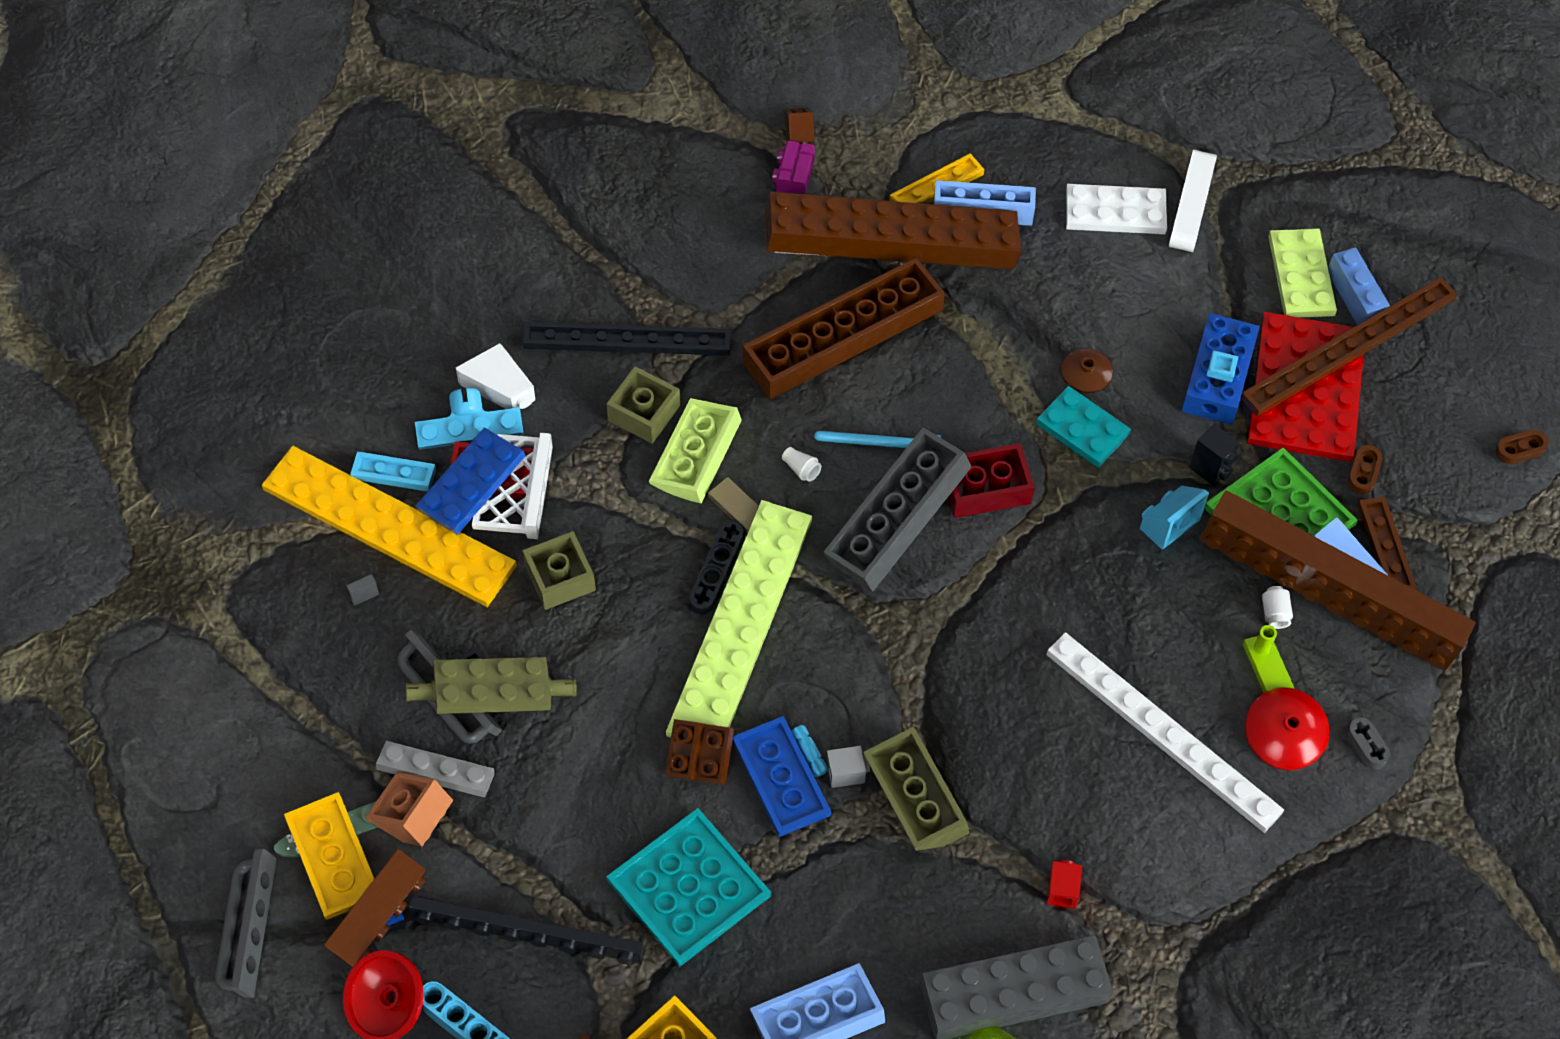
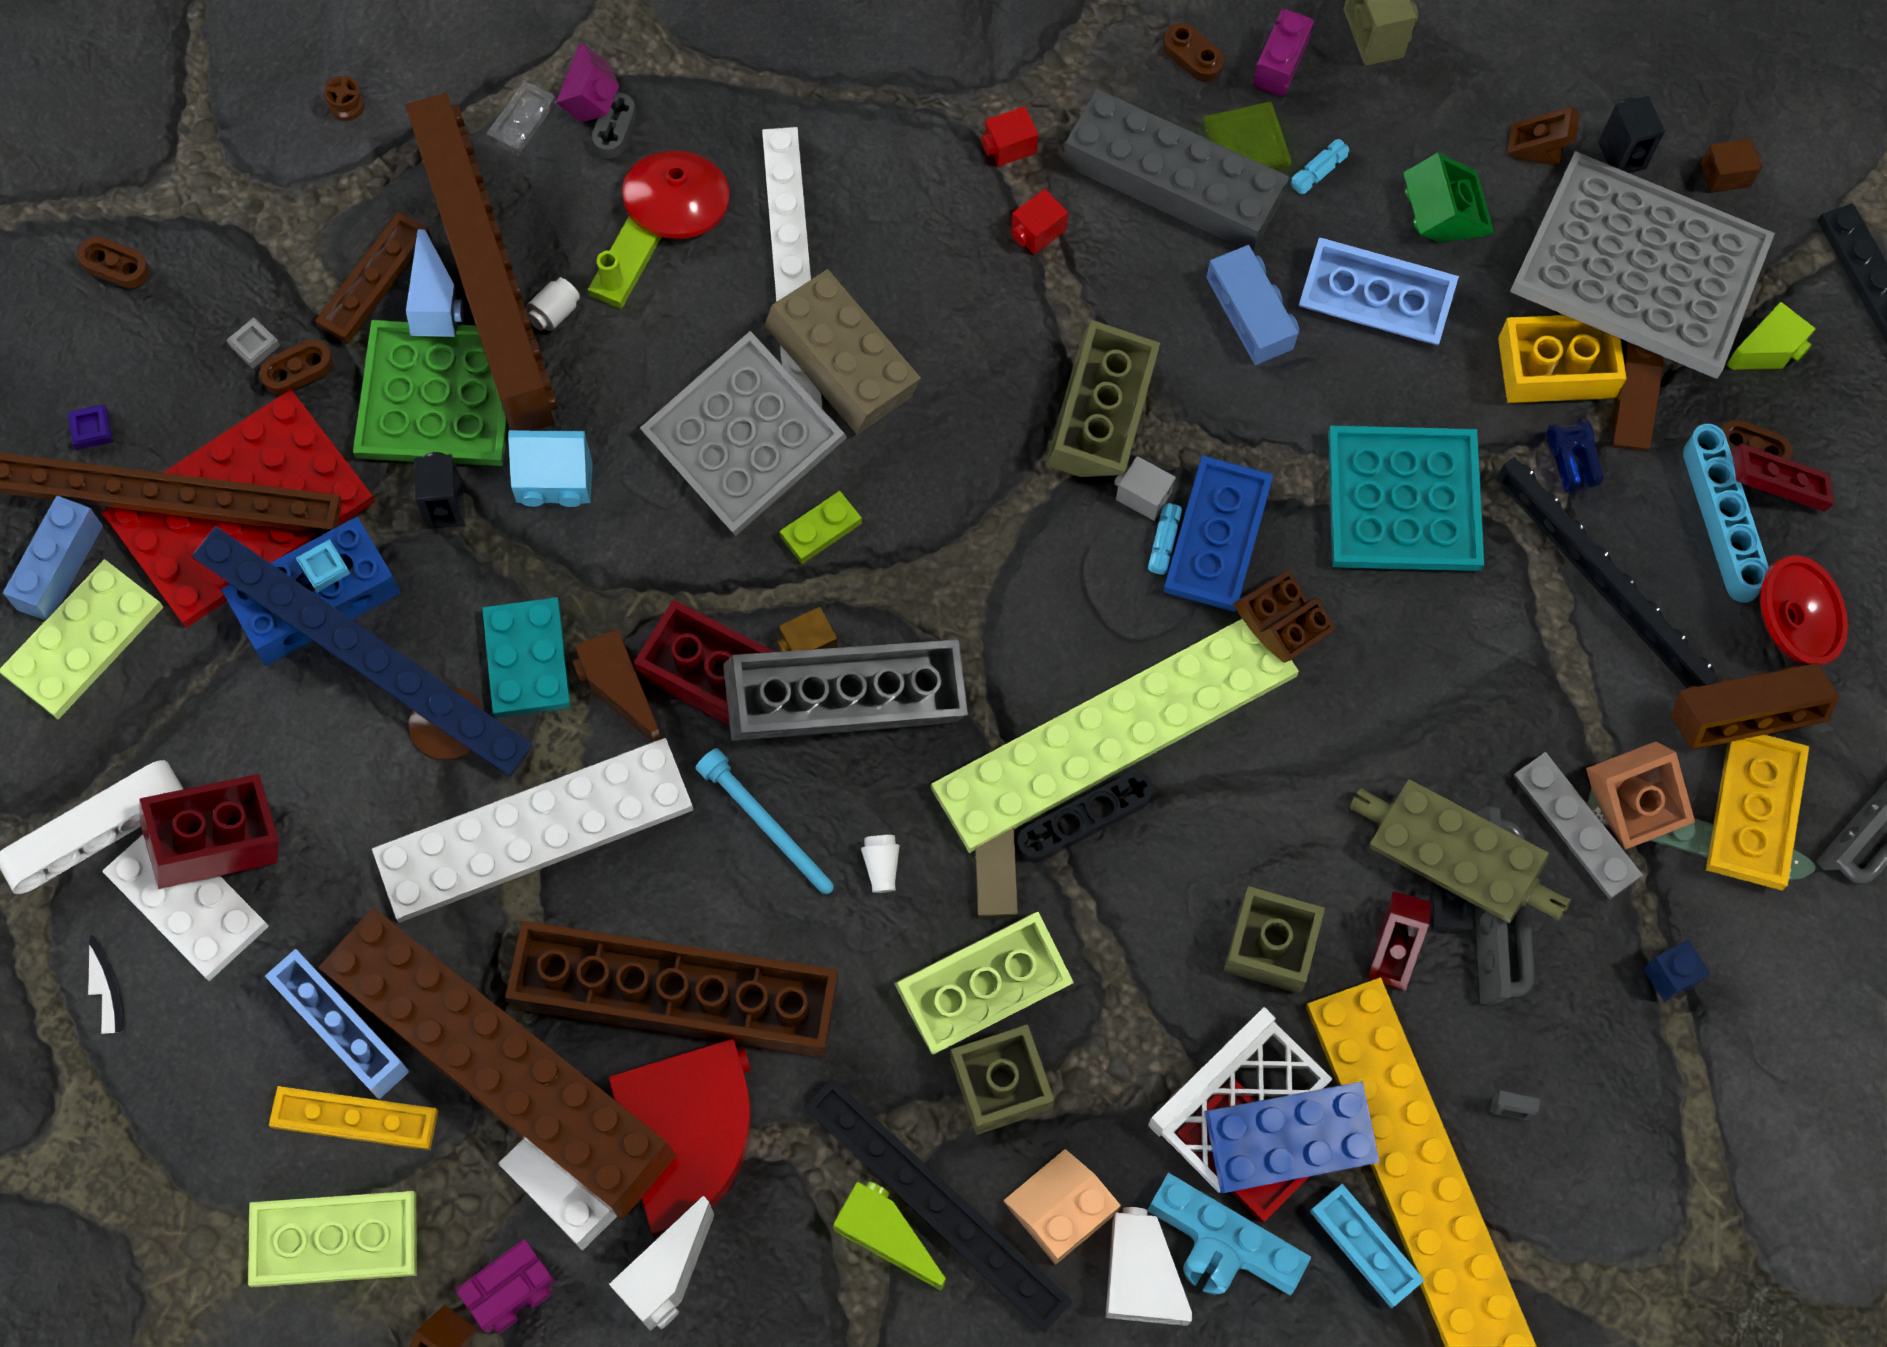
camera: 140 degrees left, 10 degrees up
(319, 723) = (1676, 970): none -> dark blue brick
(491, 628) = (1400, 940): none -> dark red slope
(563, 379) = (1062, 1205): none -> light nougat slope
(613, 1008) = (1579, 441): none -> clear blue piece
(637, 308) = (880, 1228): none -> lime slope
(726, 209) = (660, 1275): none -> white slope
(778, 284) = (705, 1117): none -> red brick
(886, 936) = (1253, 304): none -> medium blue brick
(893, 137) = (332, 1239): none -> yellowish green tile
(949, 539) = (807, 633): none -> pearl gold brick
(989, 356) = (531, 830): none -> white plate
(1005, 608) = (820, 527): none -> lime plate
(1037, 443) = (614, 680): none -> reddish brown slope
(1090, 697) = (842, 351): none -> dark tan brick
(1097, 614) = (743, 433): none -> light grey plate
(1111, 154) = (103, 982): none -> sticker
(1133, 225) = (208, 831): none -> dark red brick
(1136, 928) = (1010, 136): none -> red brick
(1158, 348) = (362, 651): none -> dark blue plate
(1403, 468) = (253, 342): none -> light grey tile
(1408, 749) = (588, 86): none -> magenta slope
(1421, 701) = (521, 118): none -> clear plate
(1425, 365) = (90, 427): none -> dark purple tile
(1526, 624) = (337, 91): none -> reddish brown wheel

